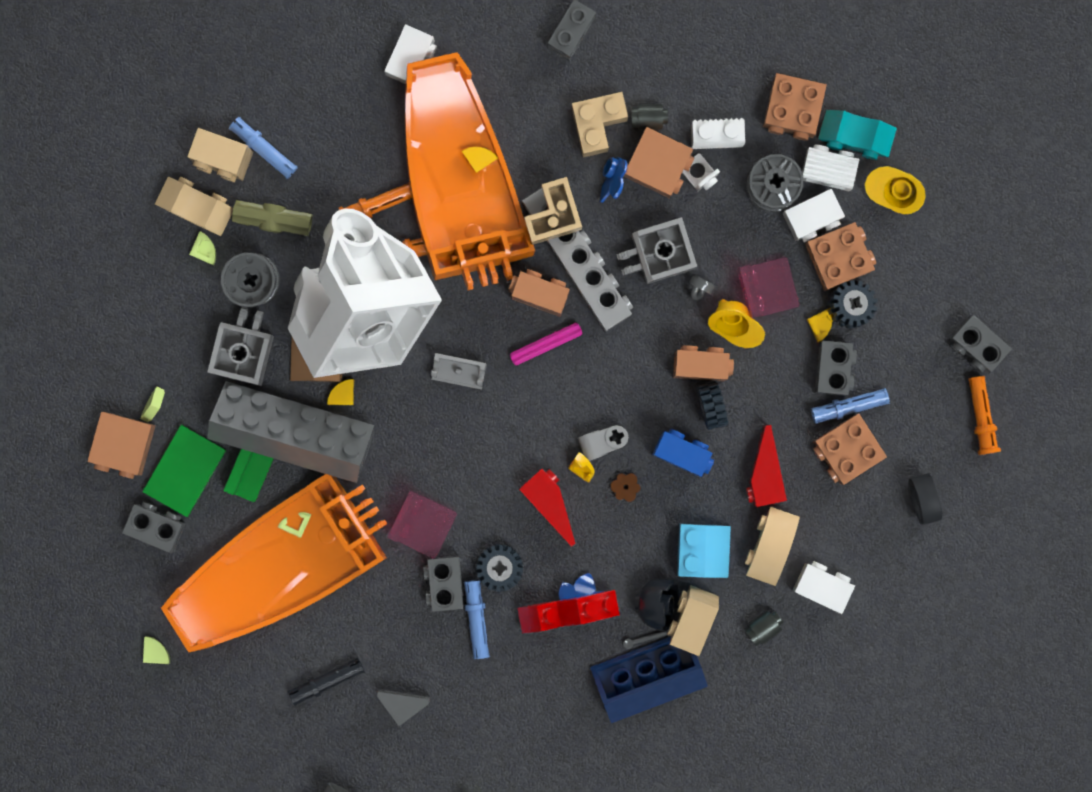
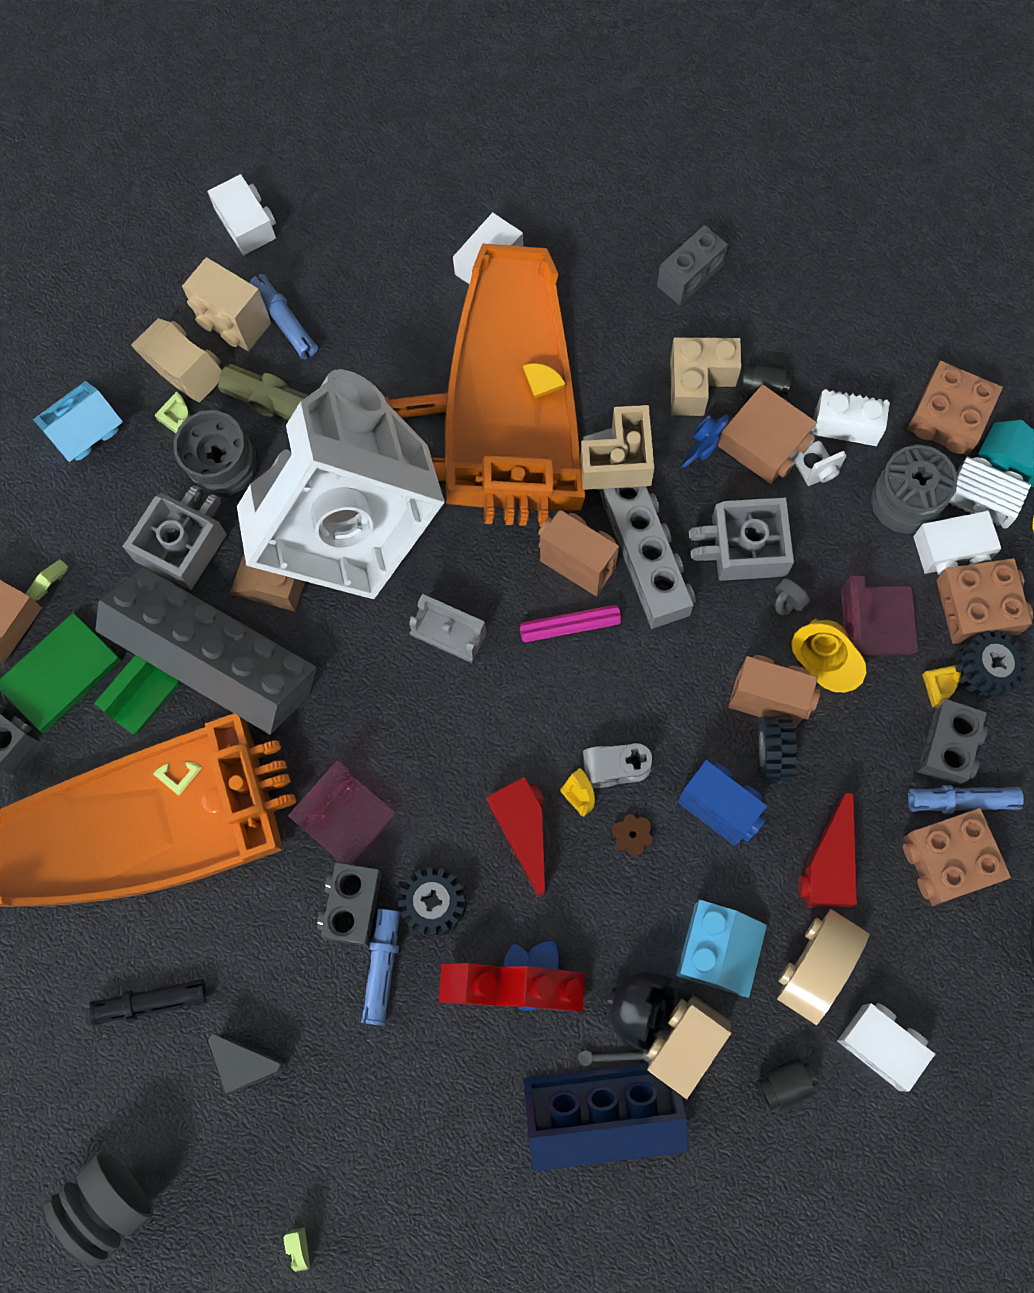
camera: 20 degrees right, 15 degrees down
(132, 274) = (79, 421): none -> medium azure slope
(204, 67) = (242, 214): none -> white brick
(342, 394) = (290, 624): yellow tile -> none

